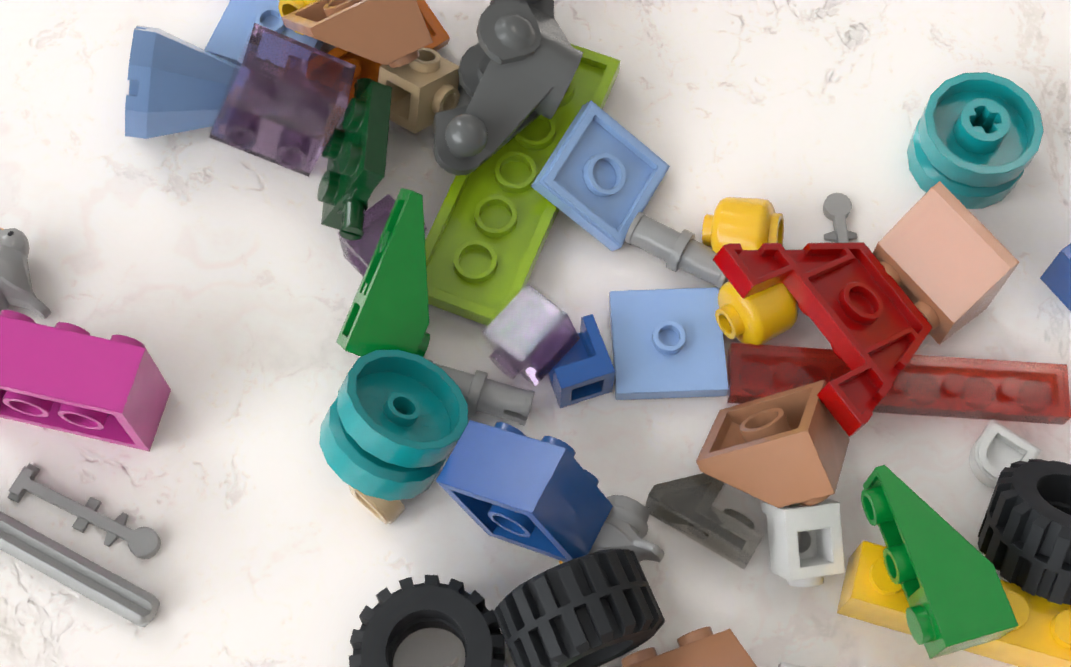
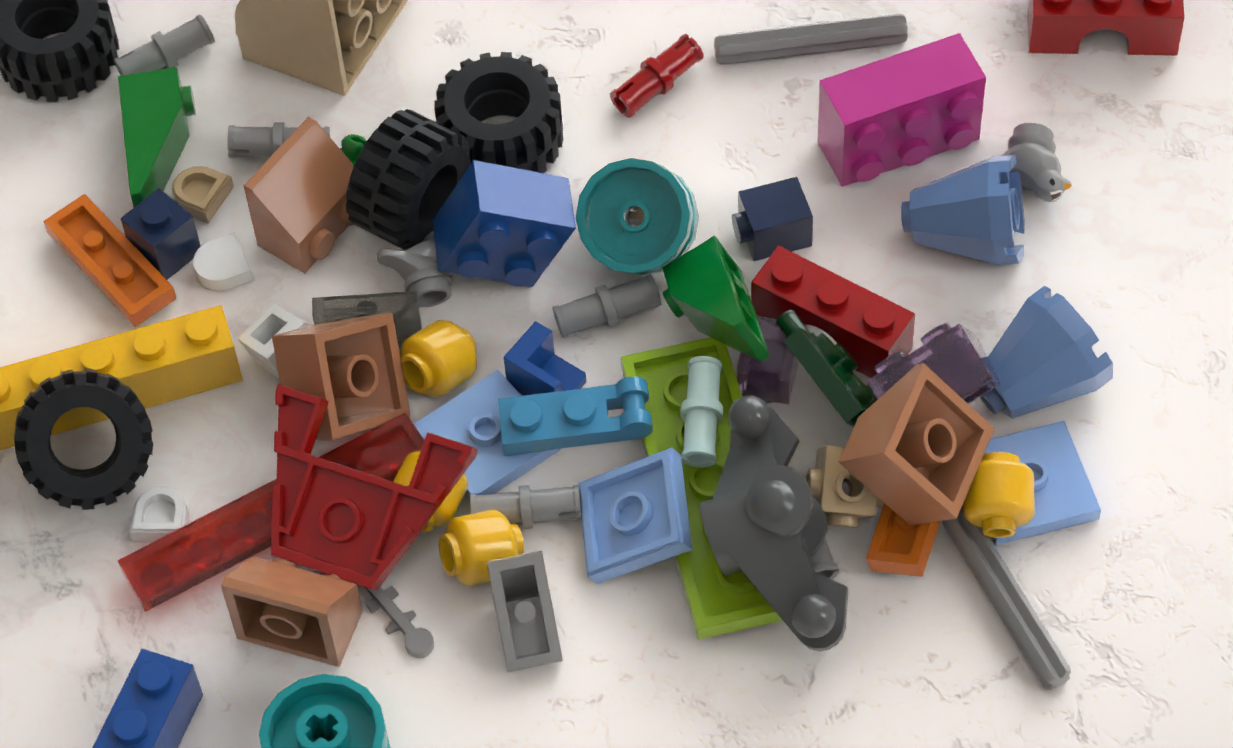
camera: 150 degrees right, 10 degrees down
(99, 248) = (970, 212): none -> medium blue cone
(142, 542) = (765, 87): light grey piece -> none
(232, 617) = (656, 75): none -> red pin
(265, 373) = (773, 217): none -> dark blue brick
(300, 243) = (850, 314): none -> red arch
(484, 210) = (701, 412): none -> light aqua pin
(530, 336) = (593, 352): brick -> none
(590, 284) = (575, 417): none -> dark azure plate
(664, 432) = (438, 358): none -> yellow head
(744, 156) = (524, 611): none -> light grey slope
(946, 580) = (158, 325): green slope -> none

